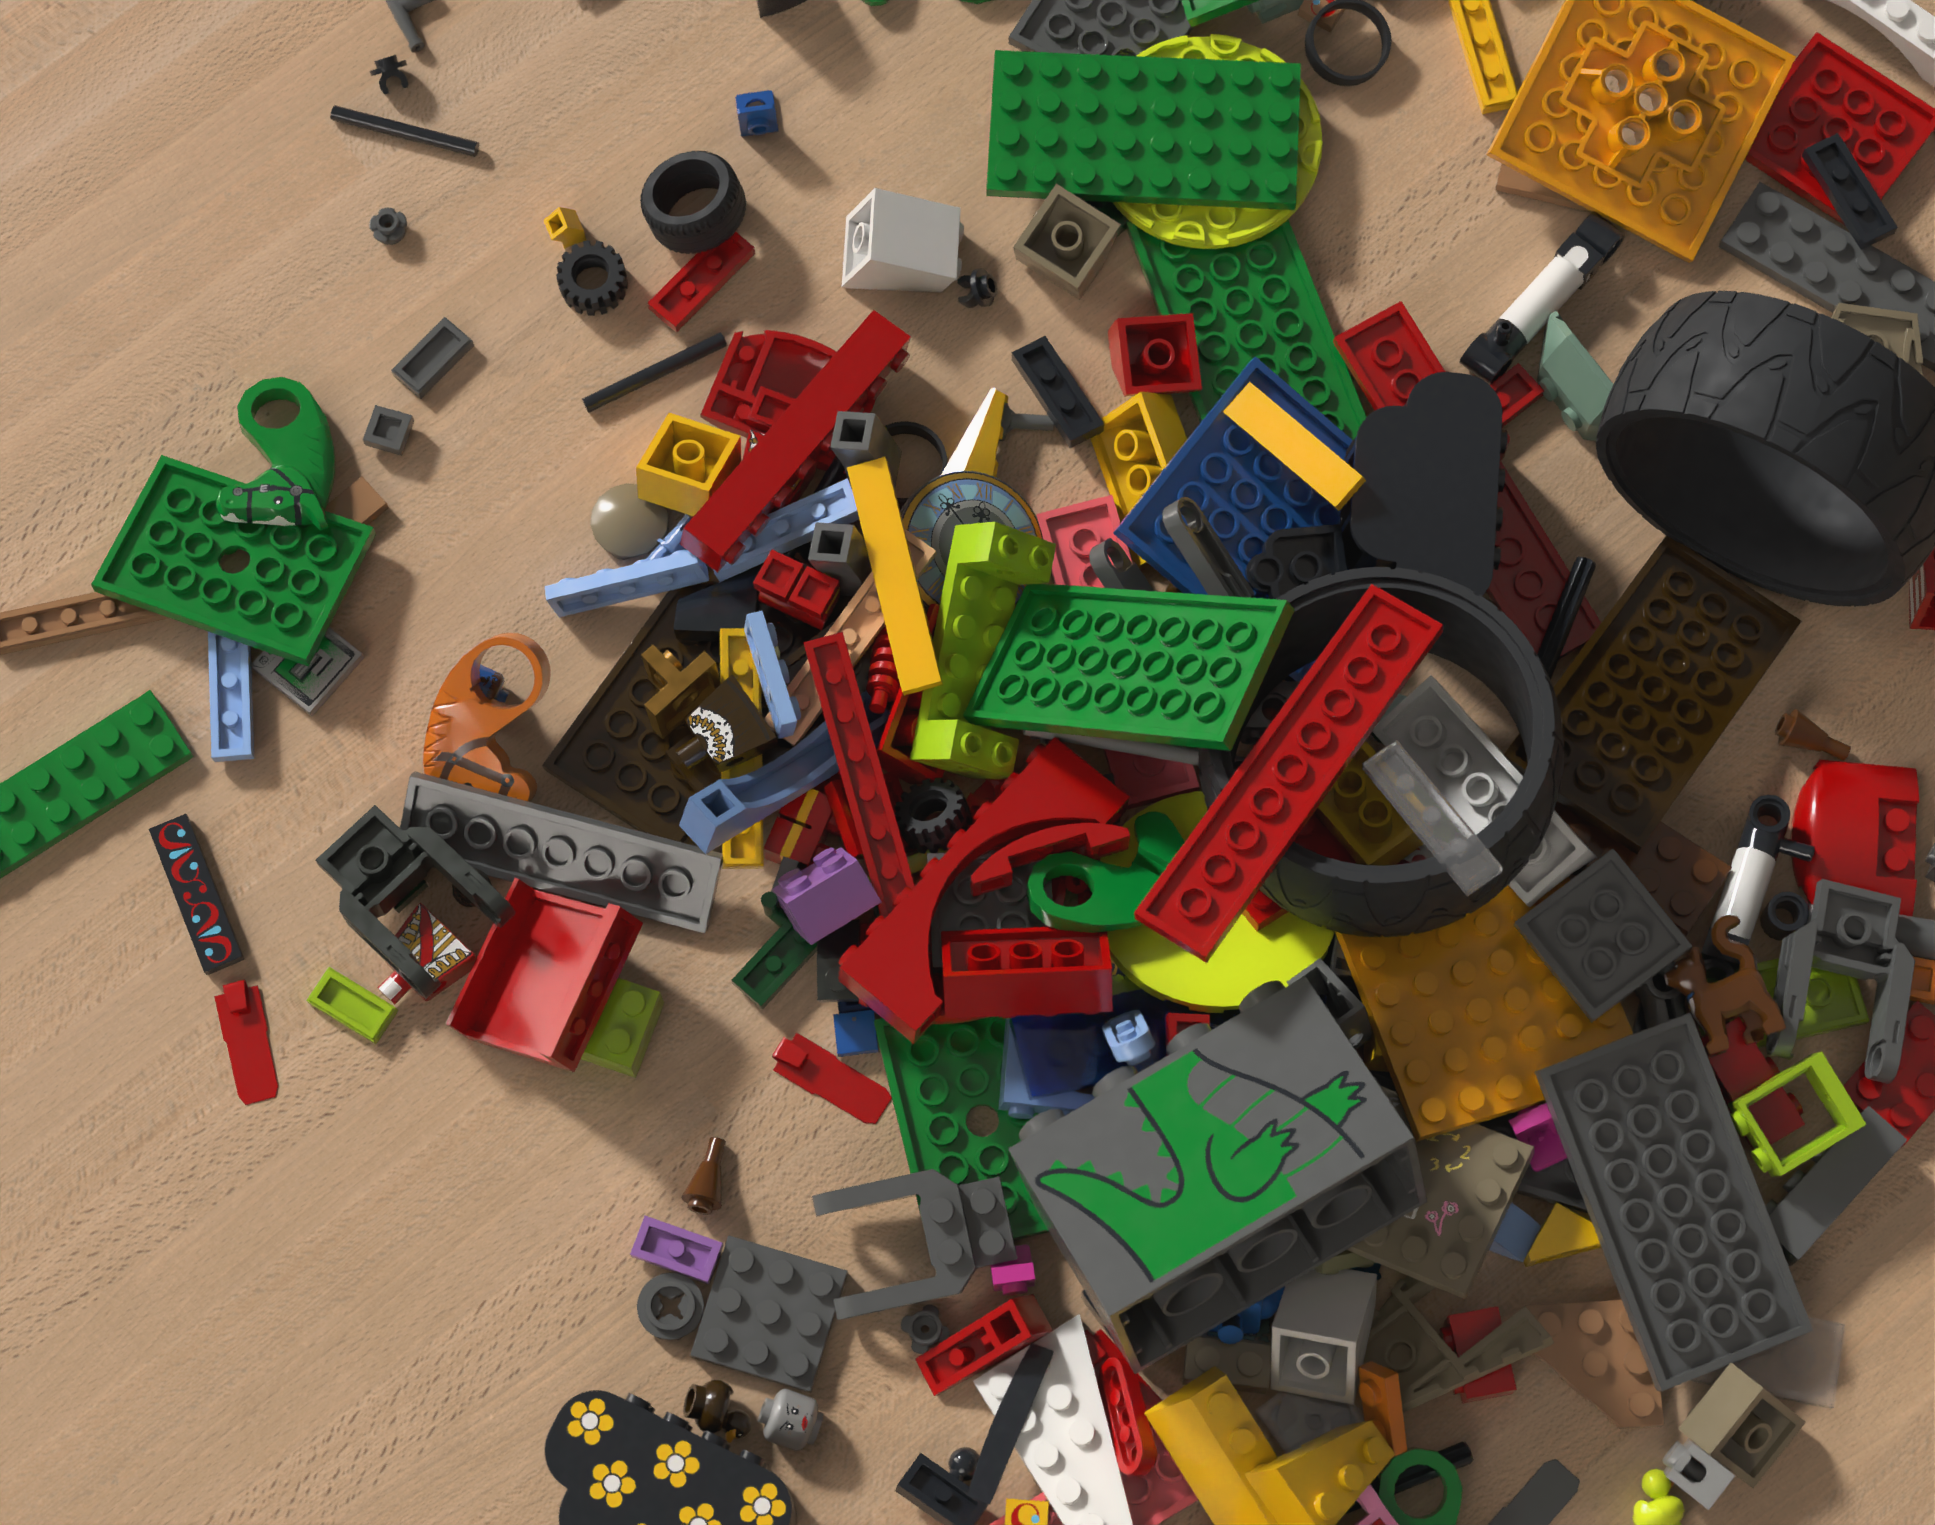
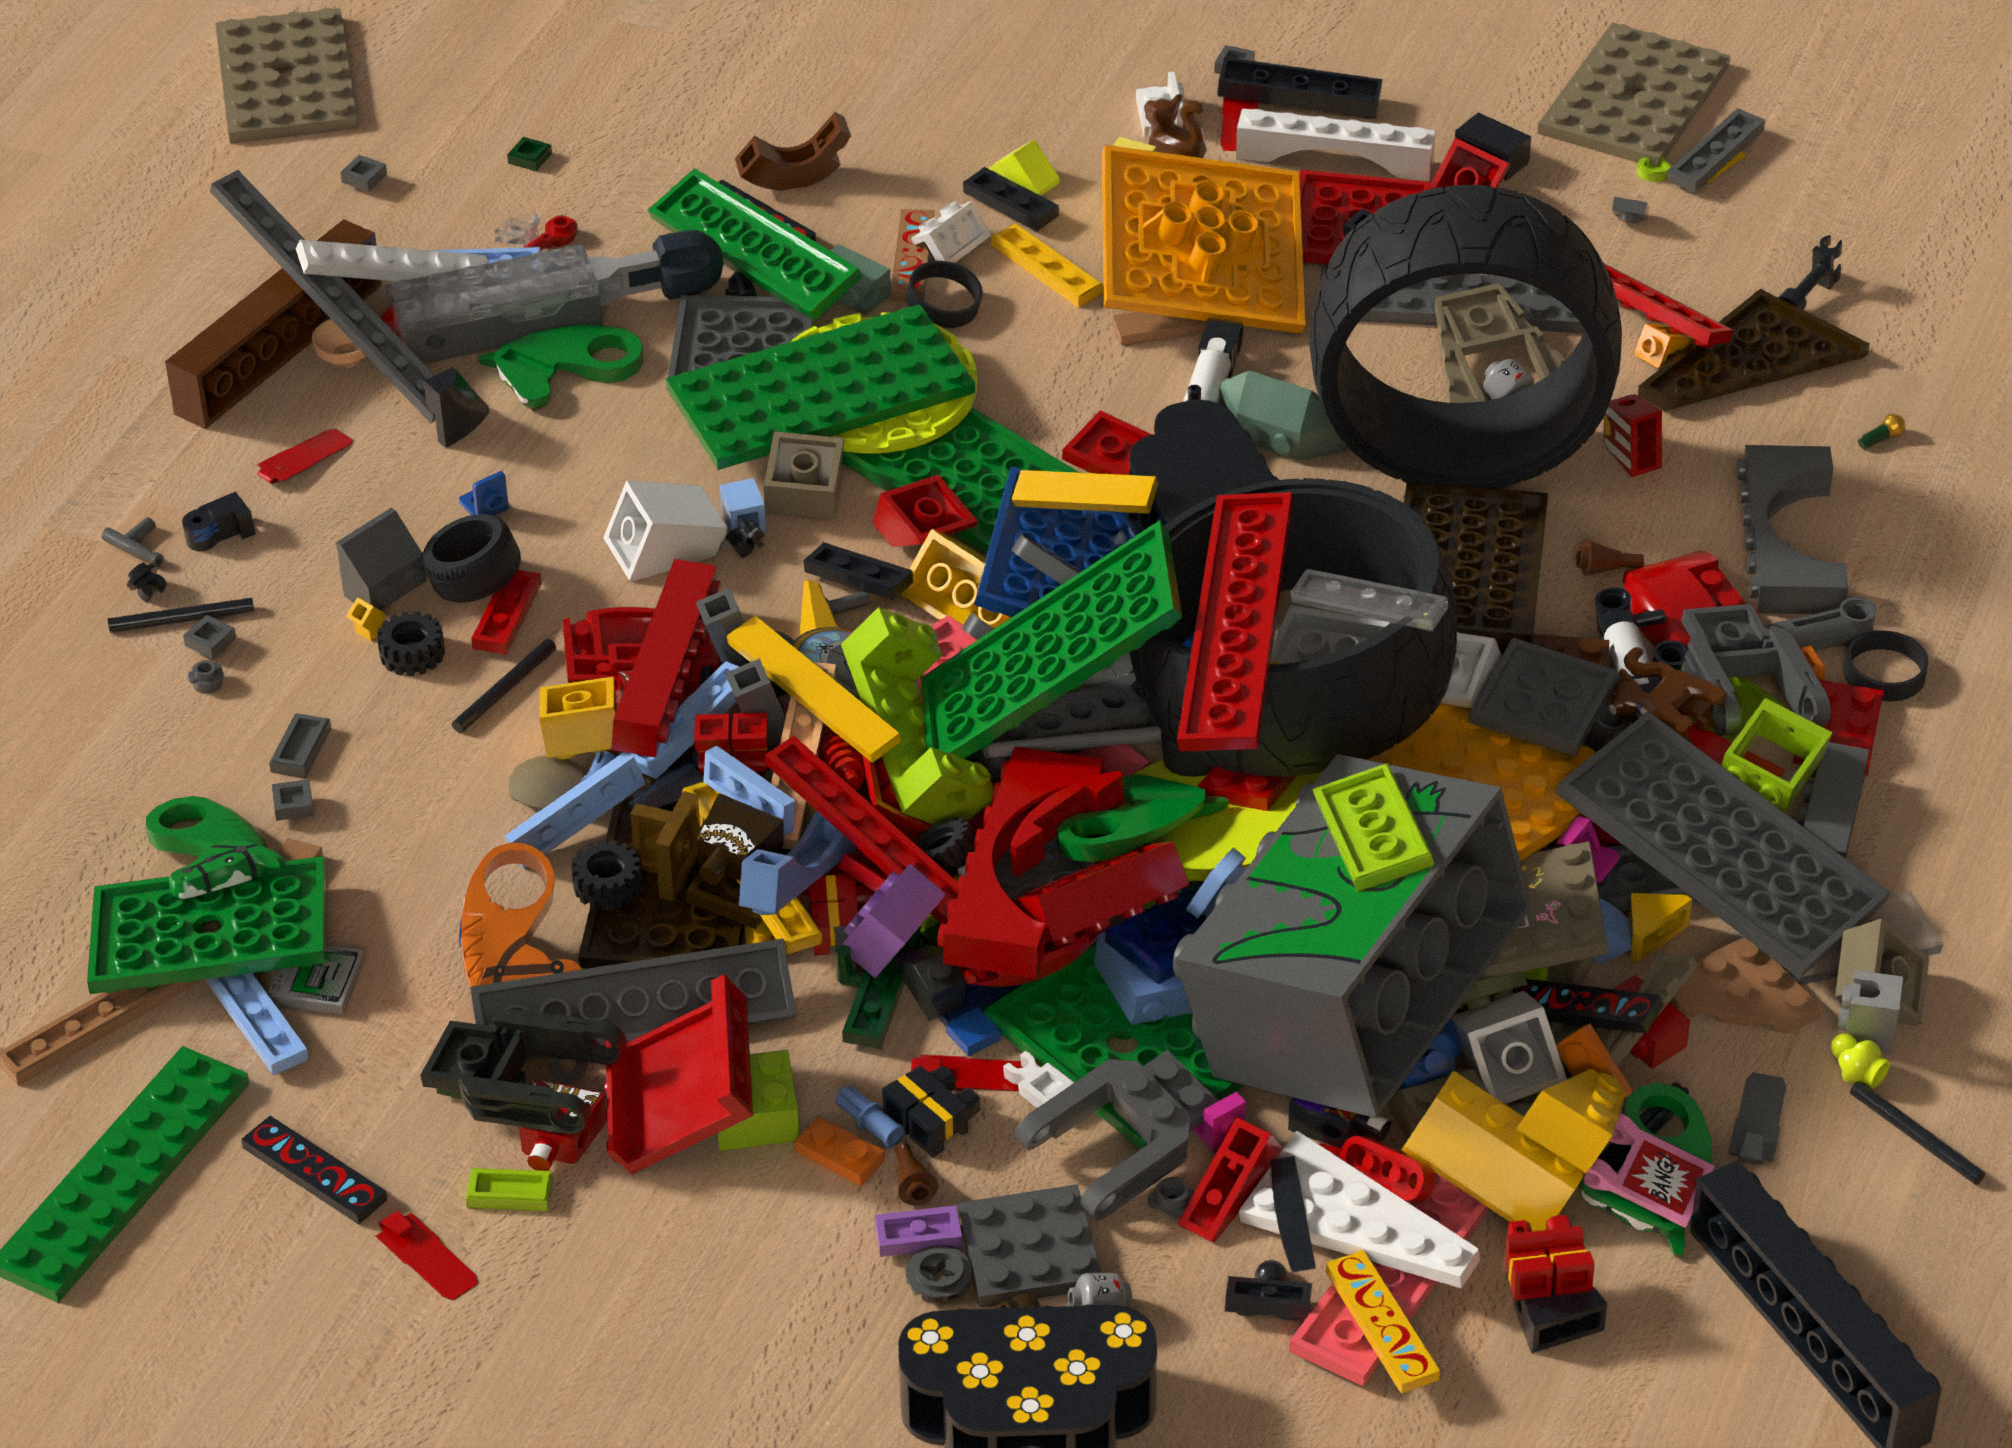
camera: 30 degrees left, 30 degrees down
(413, 177) = (209, 636): none -> dark grey plate
(490, 25) = (217, 522): none -> black leg
(605, 166) = (380, 561): none -> dark grey slope
(607, 661) = (610, 890): none -> black tyre
(661, 1113) = (839, 1151): none -> orange plate
(706, 1088) = (870, 1116): none -> medium blue axle
(758, 1114) = (929, 1108): none -> black hips
(880, 1136) = (1036, 1083): none -> white plate
(993, 247) = (742, 502): none -> light blue brick
(1269, 1109) = (1373, 827): none -> lime tile
(1428, 1331) = (1595, 1005): none -> black tile

